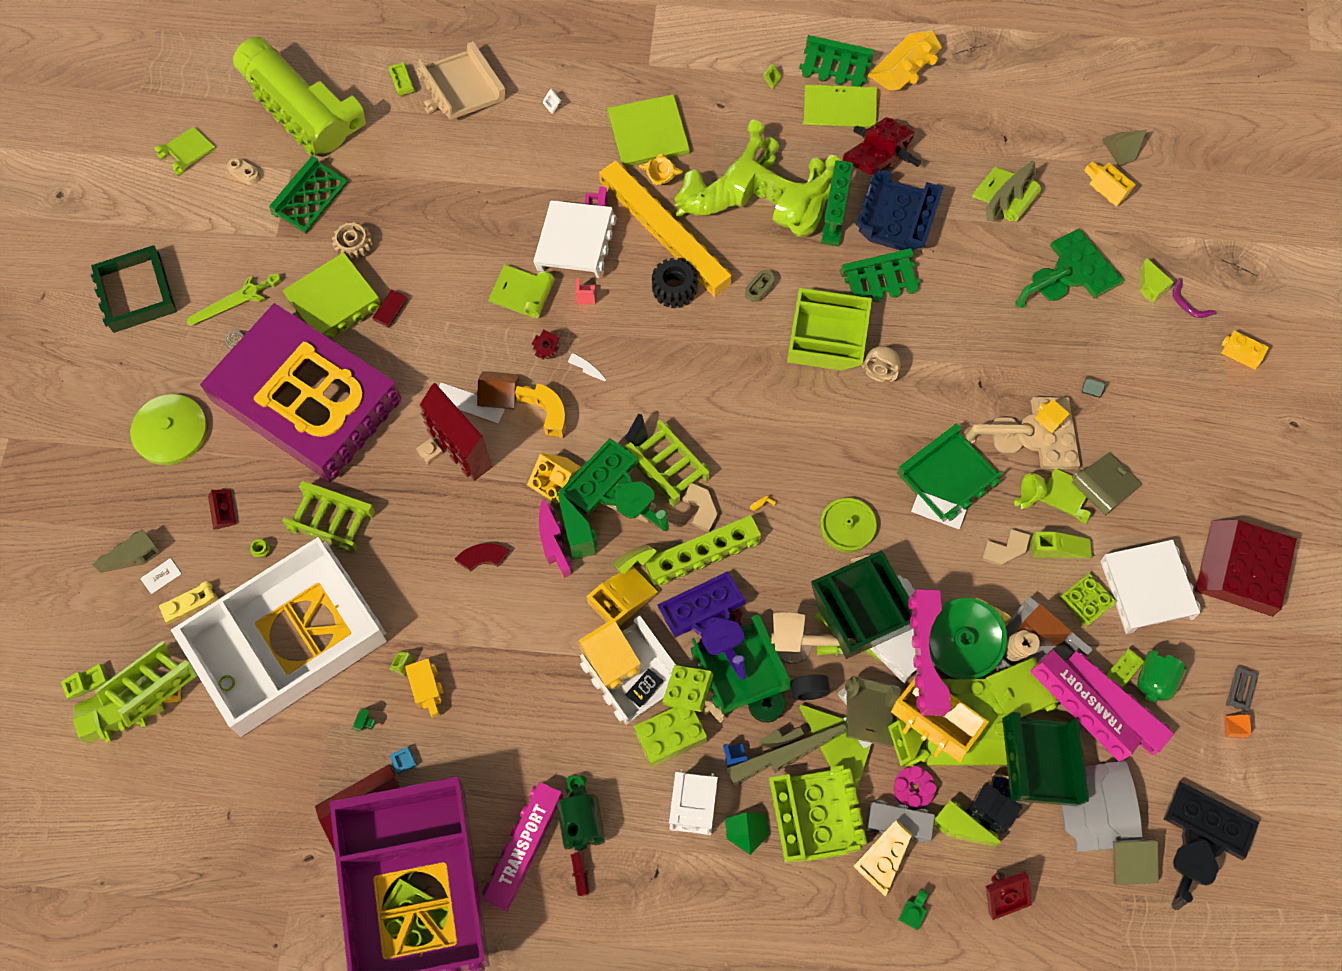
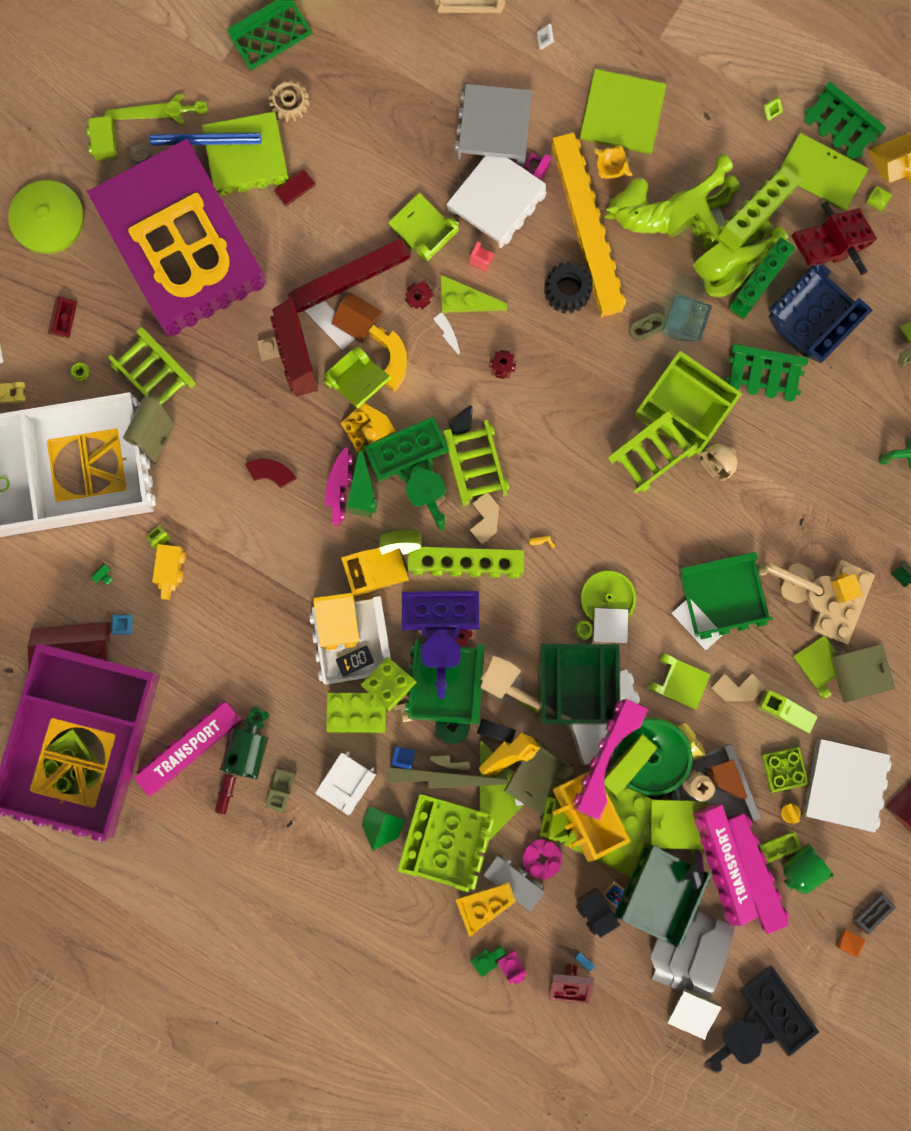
camera: 20 degrees right, 15 degrees up
(143, 314) = (92, 90): dark green window -> none
(194, 340) = (102, 137): none -> lime brick
(292, 298) = (206, 138): none -> blue axle
(350, 561) = (149, 428): none -> olive door
(479, 352) = (350, 275): none -> dark red beam
(522, 437) = (356, 377): none -> lime door
(542, 181) = (494, 122): none -> light grey panel
(586, 333) = (461, 298): none -> lime wing
(632, 843) = (280, 790): none -> olive slope
(649, 369) = (499, 370): none -> dark red brick
(790, 264) = (686, 319): none -> clear light blue slope
(803, 150) = (759, 209): none -> lime brick
(811, 363) = (651, 433): none -> lime fence
(831, 701) = (522, 748): none -> yellow slope
(840, 560) = (583, 630): none -> lime plate
(862, 543) = (610, 625): none -> white sticker
(898, 106) = (879, 198): none -> lime tile
(942, 906) = (512, 968): none -> dark pink bracket
(949, 651) = (629, 764): none -> lime slope
(953, 567) = (682, 682): none -> lime flag
(959, 825) = (560, 907): lime slope -> none
(1006, 864) = (584, 961): none -> dark azure tile
(1032, 490) = (791, 647): lime piece -> none
(1063, 721) = (696, 870): none -> black piece
(1115, 635) = (790, 813): none -> yellow plate

